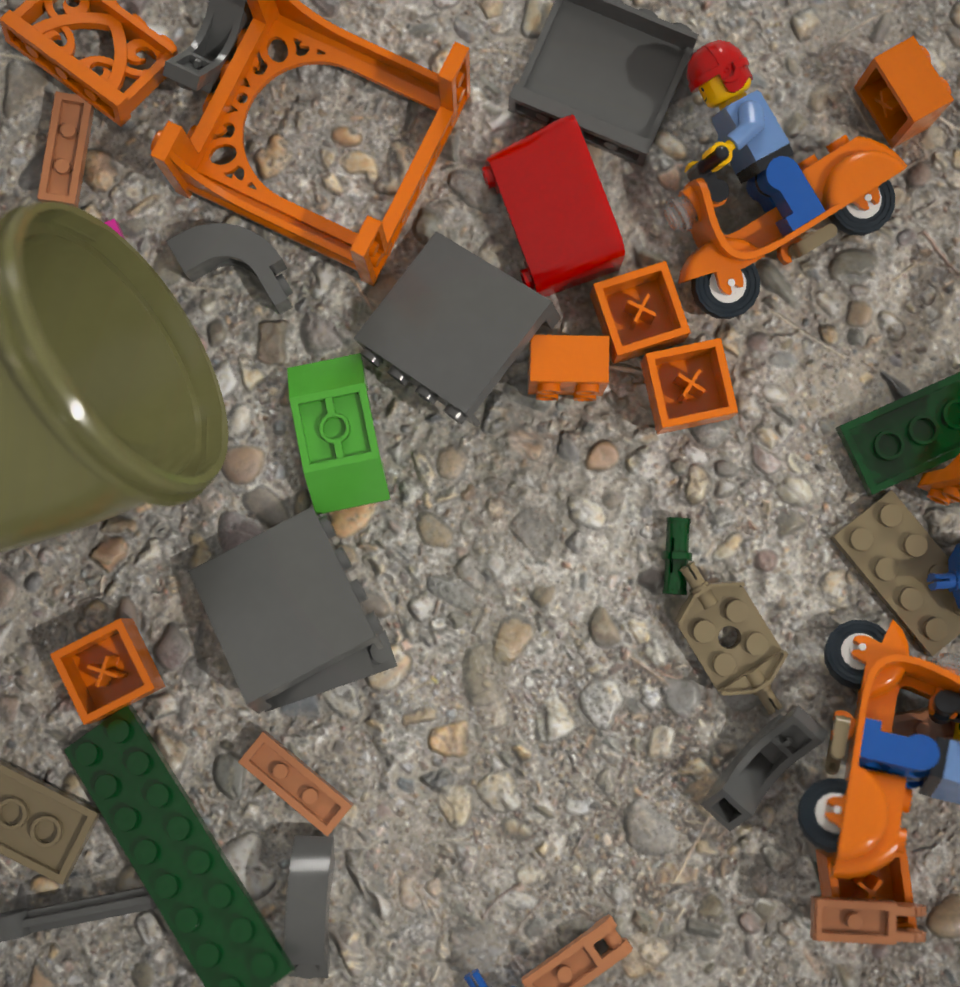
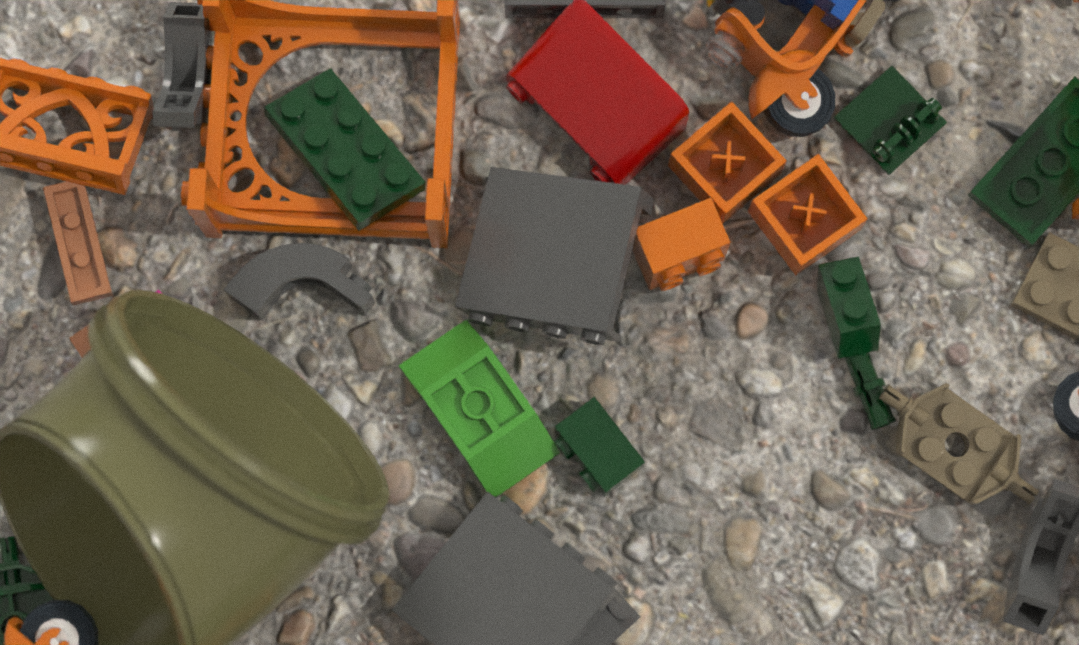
camera: 25 degrees left, 5 degrees down
(320, 163) = (344, 149): none -> dark green plate
(423, 509) = (598, 448): none -> dark green brick
(688, 481) = (848, 307): none -> dark green brick
(798, 335) = (891, 120): none -> dark green hinge

